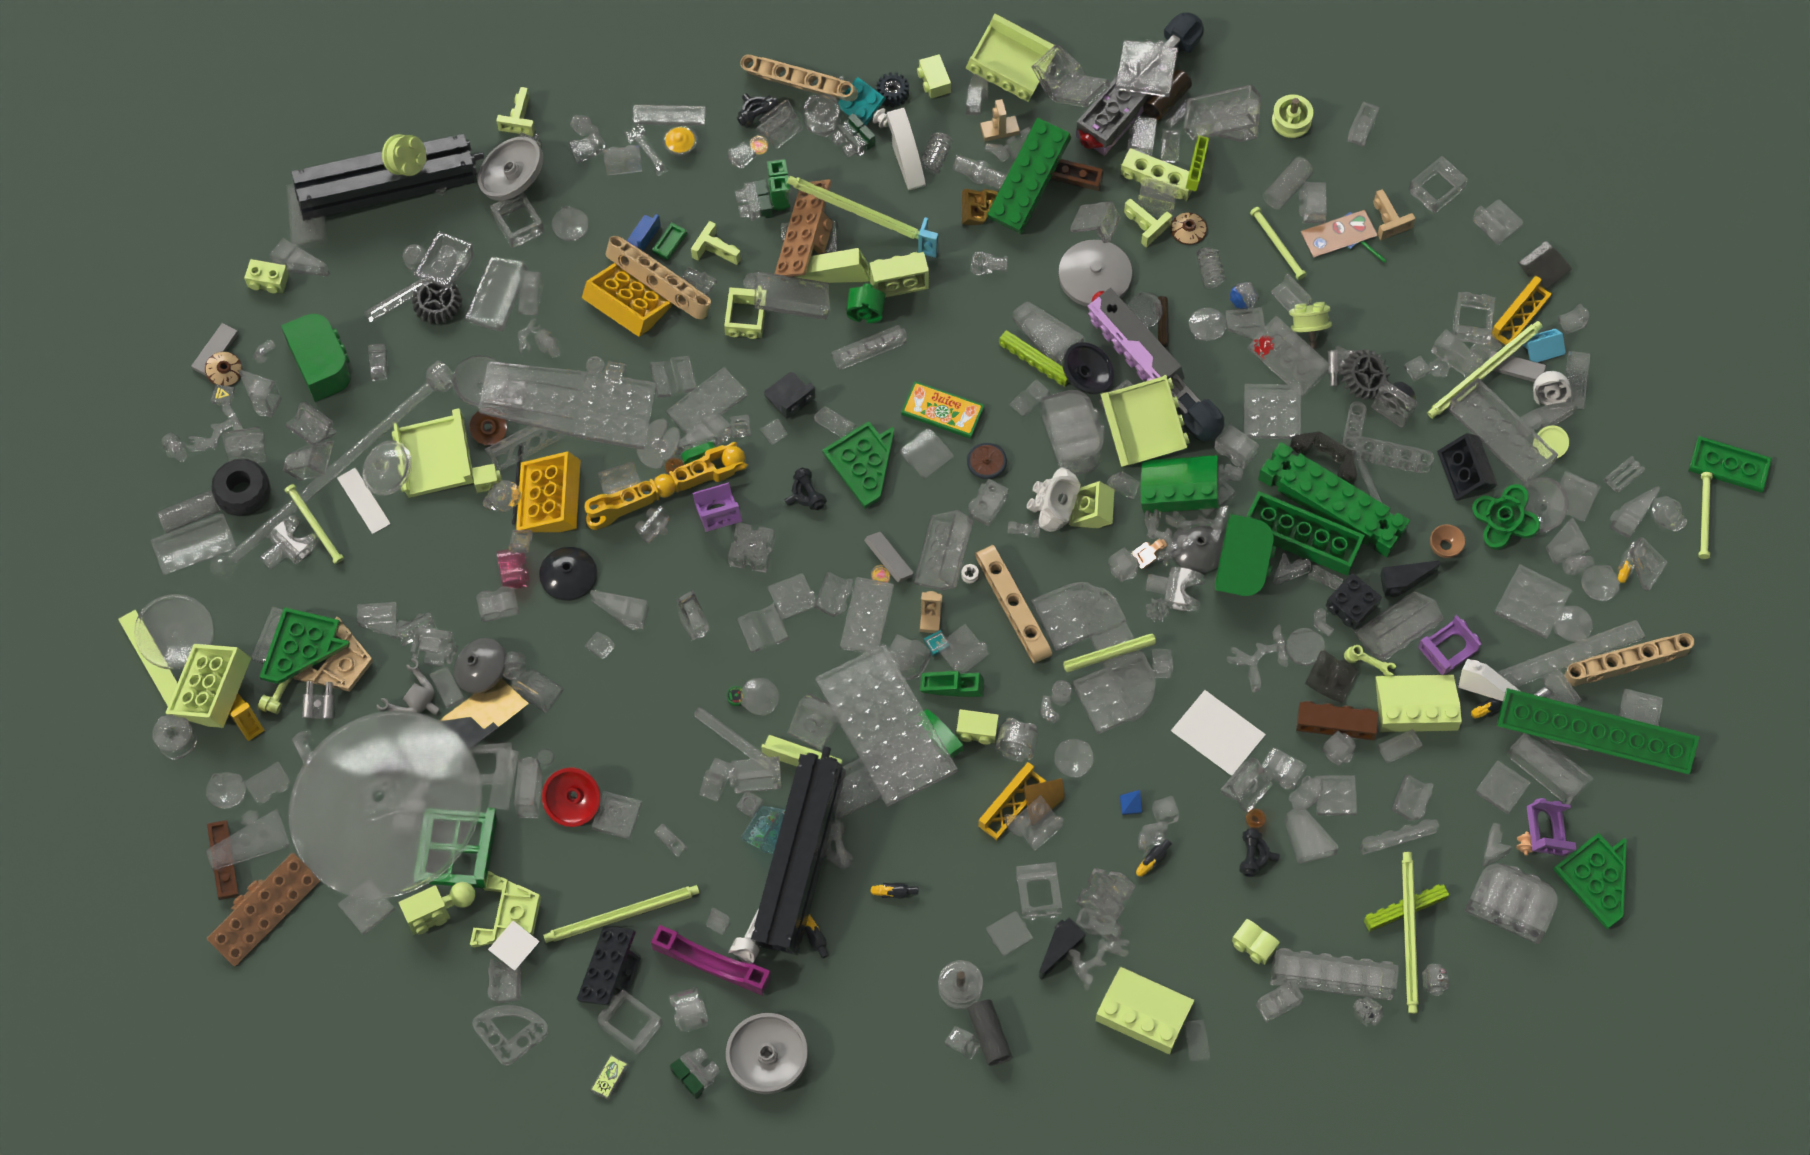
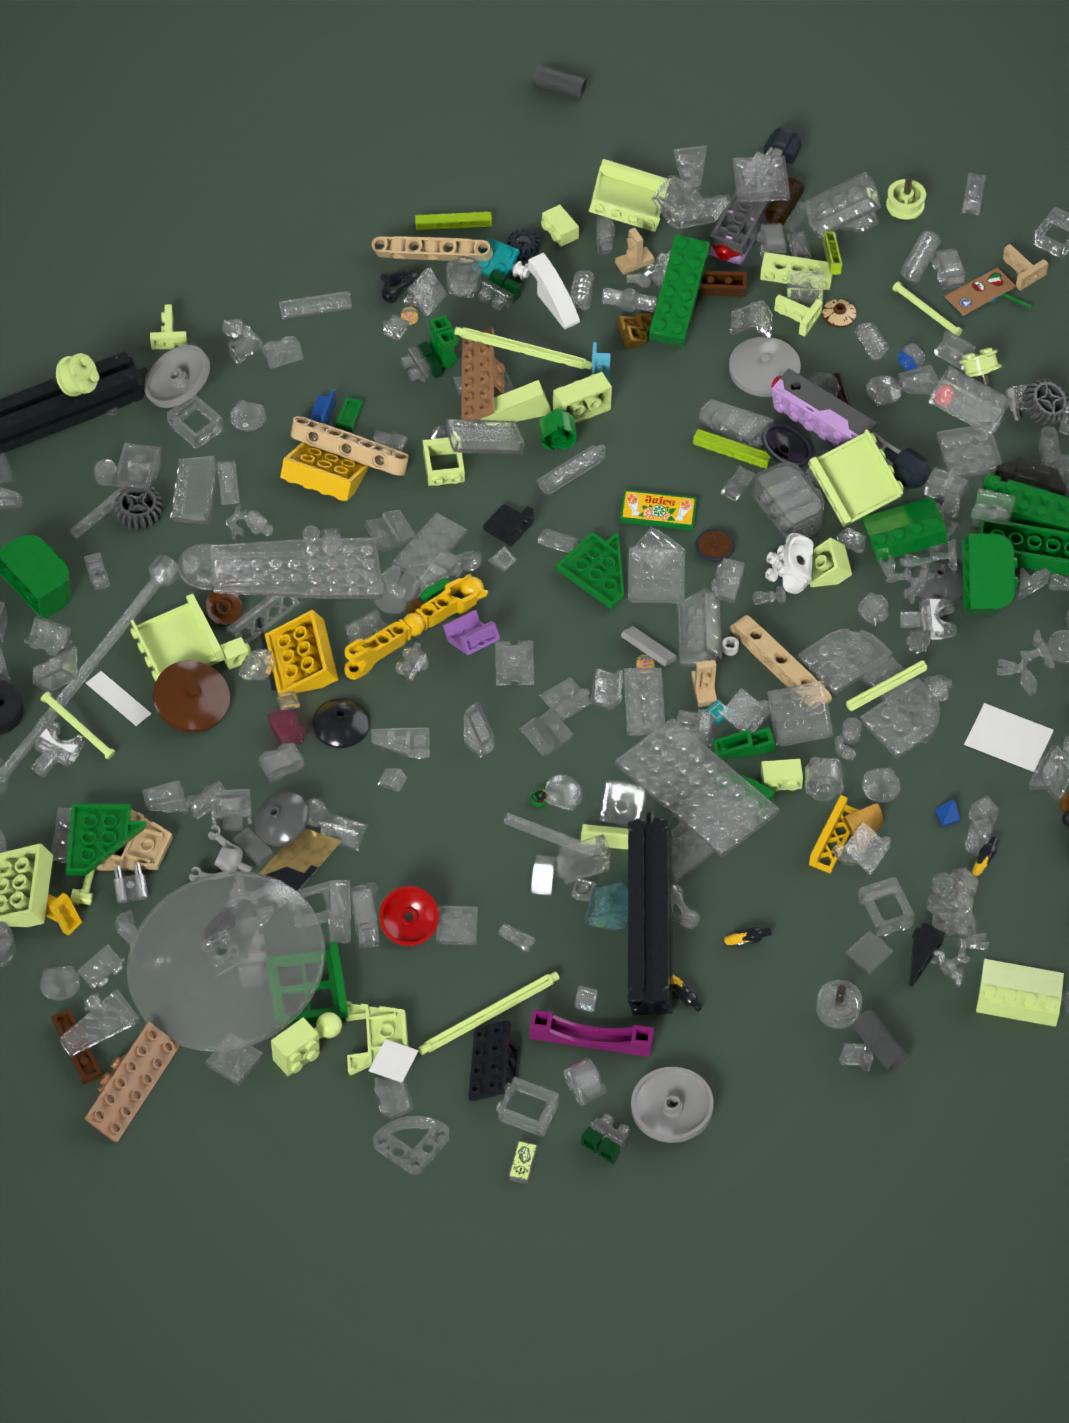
camera: 15 degrees left, 10 degrees down
(386, 468) = (140, 666): clear dish -> none
(430, 516) = (191, 696): none -> reddish brown dish
(638, 136) = (290, 327): clear hinge -> none
(680, 140) = (333, 324): yellow piece -> none
(713, 244) = (396, 409): yellowish green bracket -> none
(744, 947) = (621, 1014): white piece -> none
(803, 478) = (544, 593): black piece -> none
(831, 48) = (453, 220): none -> lime piece
(918, 481) = (656, 574): none -> clear plate
(987, 263) = (661, 376): clear connector -> none
(1014, 664) = (800, 713): none -> clear plate
(1086, 34) = (691, 164): none -> clear wing
(1147, 554) = (893, 593): plate -> none
(1273, 483) = (992, 507): none -> clear bracket

